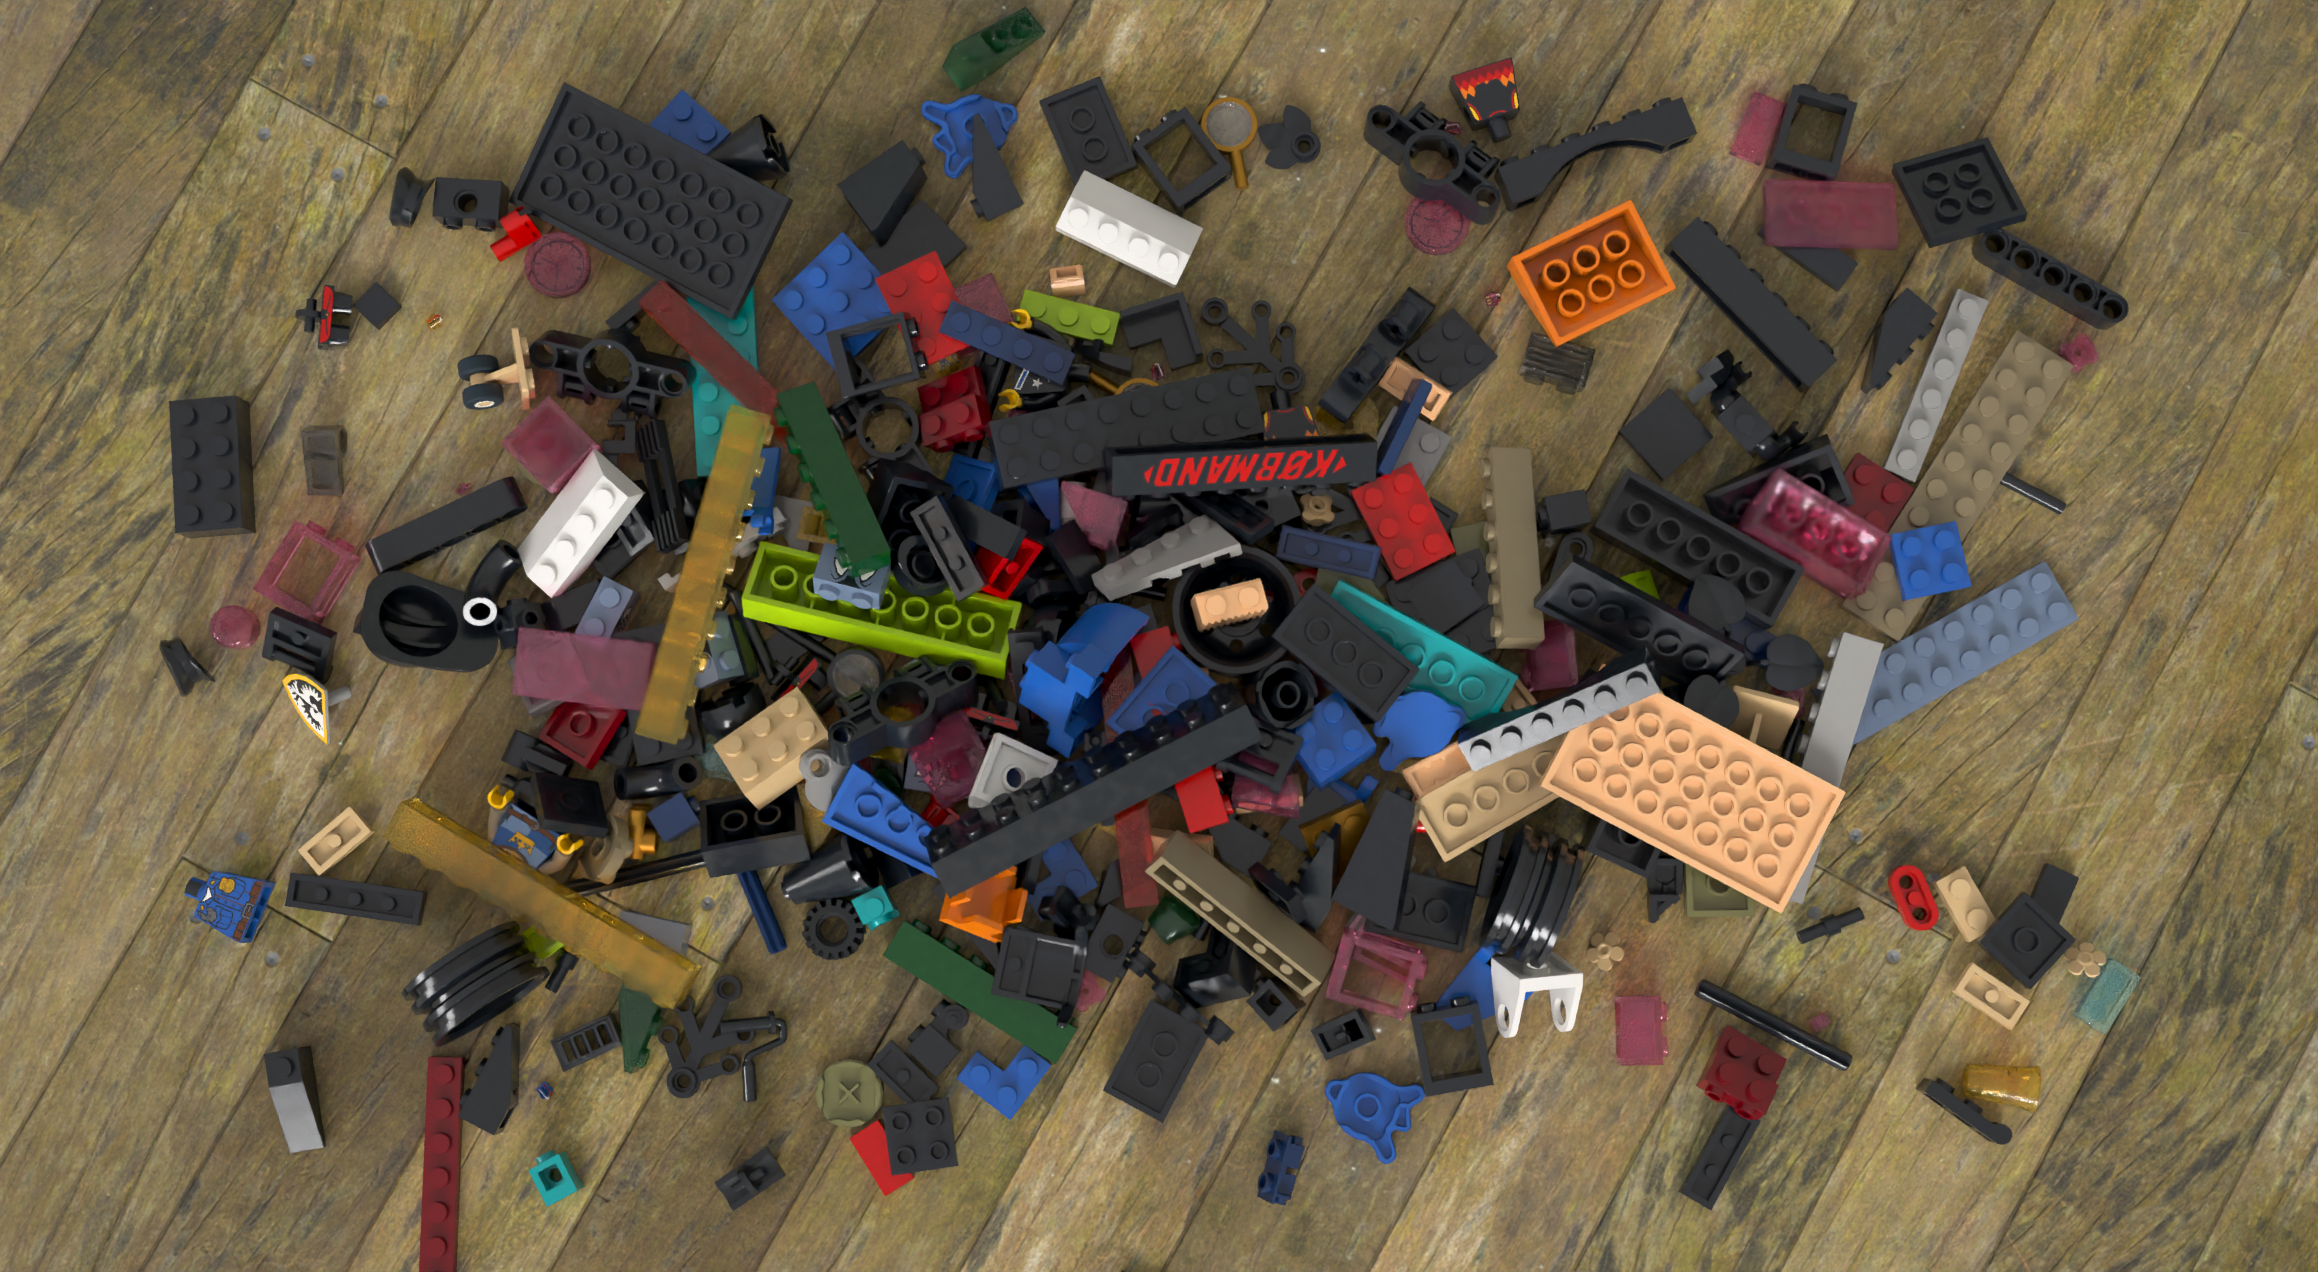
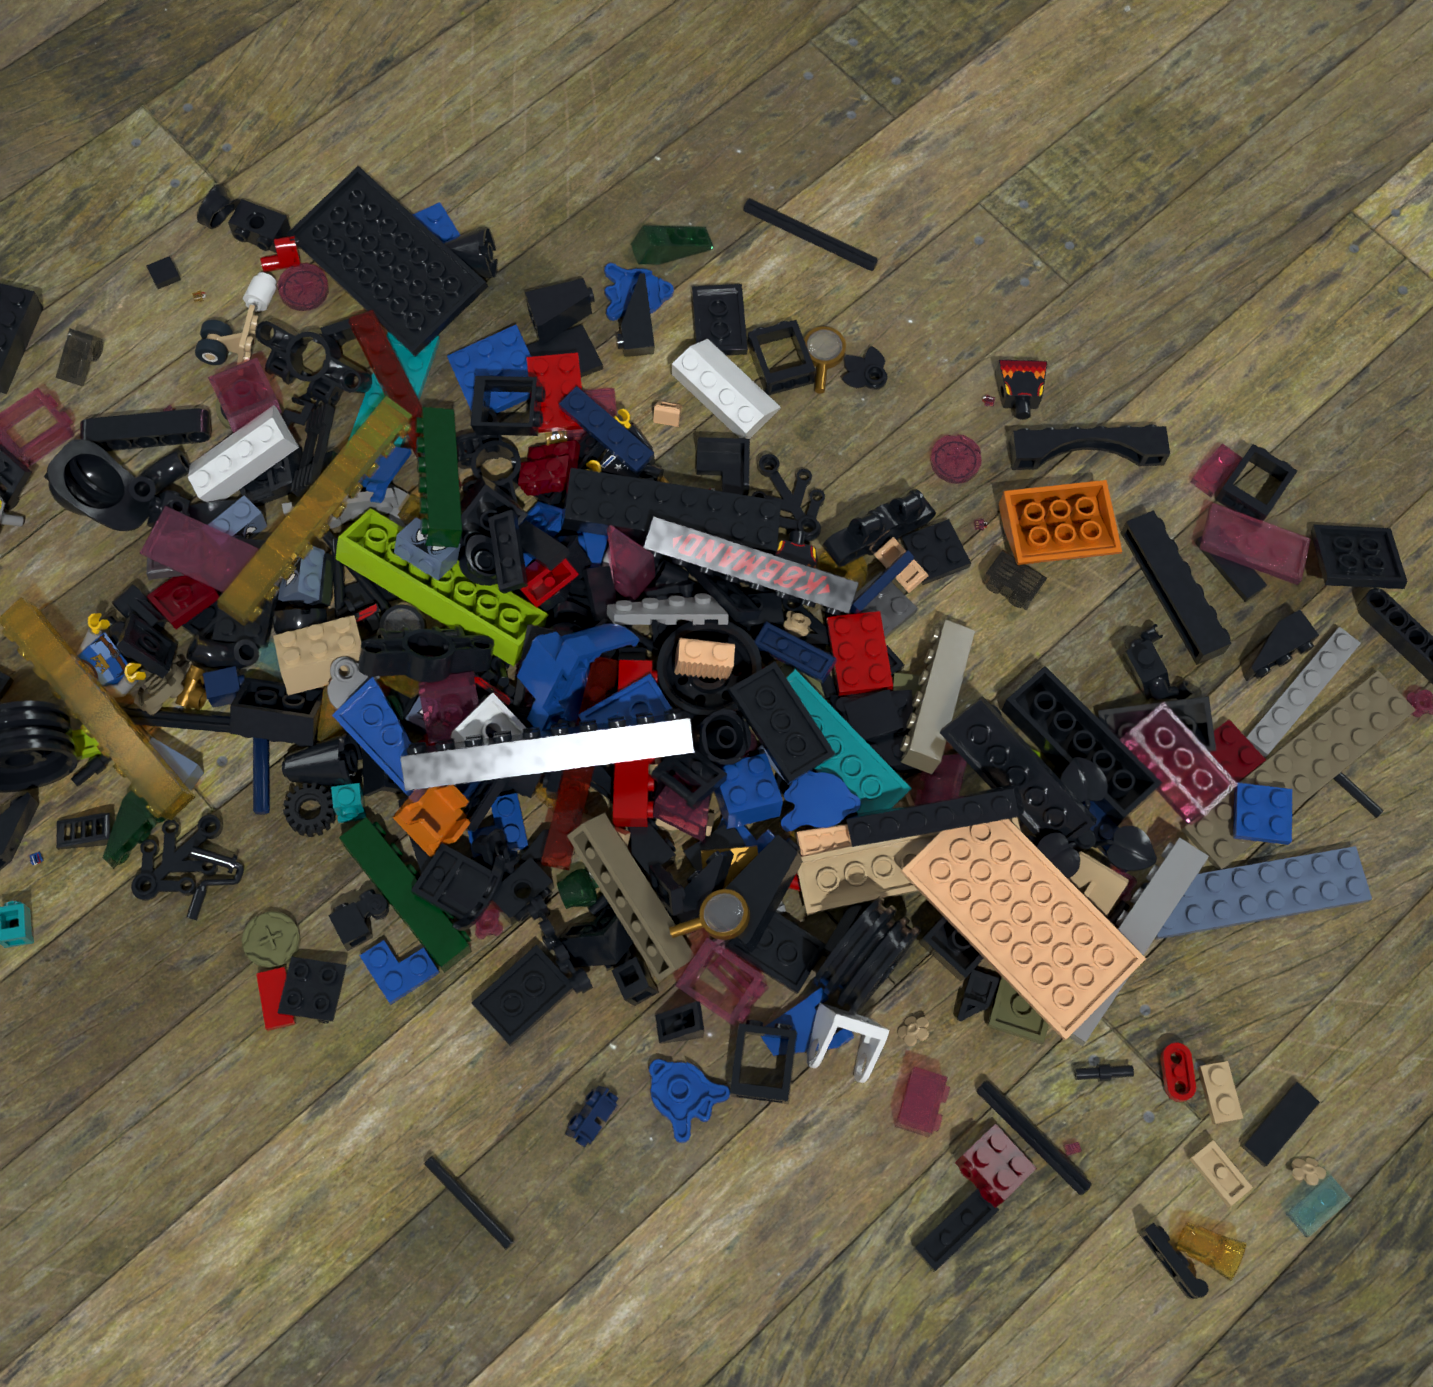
camera: 10 degrees right, 15 degrees down
(329, 333) = (120, 276): black hips -> none
(509, 293) = (260, 291): none -> white brick
(750, 1178) = (164, 976): black hips -> none
(903, 1074) = (318, 937): black plate -> none
(1071, 317) = (664, 439): lime plate -> none
(1094, 353) = (676, 472): black slope -> none
(1352, 905) = (722, 915): none -> piece
(1423, 131) = (985, 436): black piece -> none
(1562, 514) = (985, 681): black brick -> none
(1665, 434) = (1082, 659): black tile -> none
(1713, 375) = (1130, 626): black slope -> none
(2026, 940) = (1262, 1135): black plate -> none

